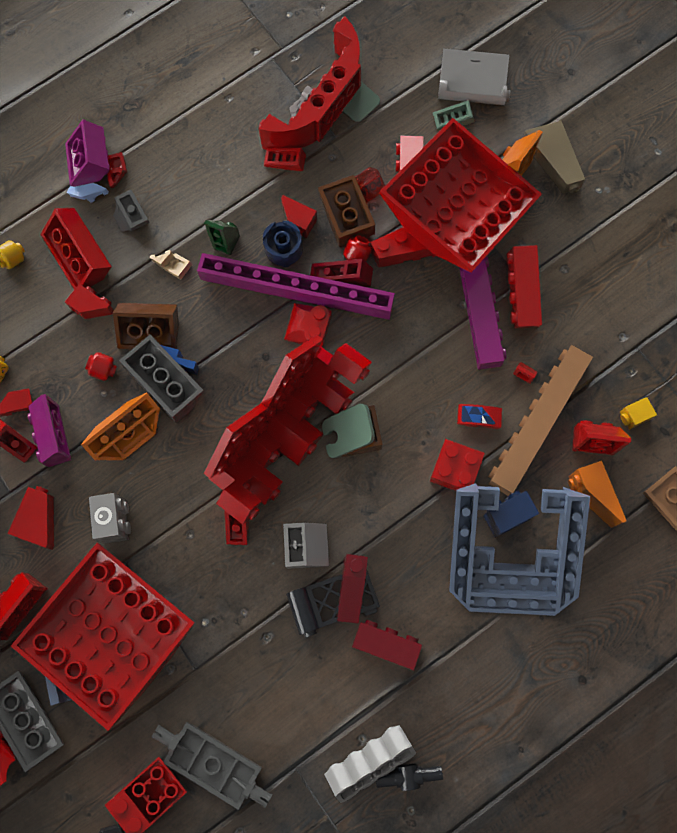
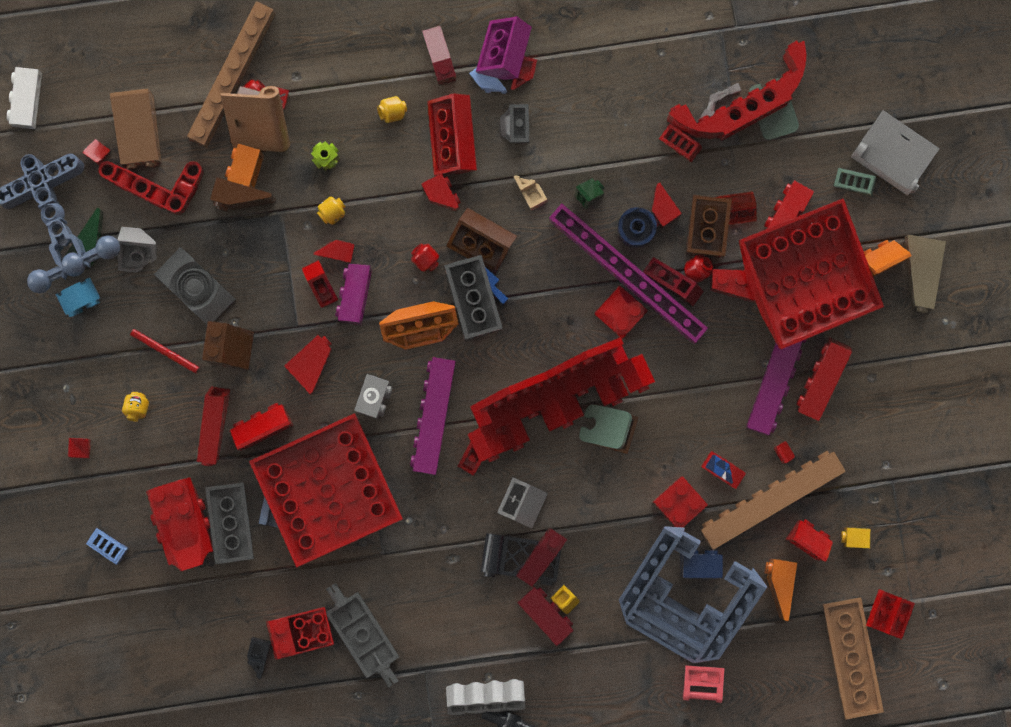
camera: 20 degrees right, 10 degrees up
(34, 192) = (439, 55): none -> slope
(179, 508) = (434, 415): none -> magenta brick
(397, 619) = (565, 599): none -> yellow slope
(574, 623) = (703, 677): none -> coral plate

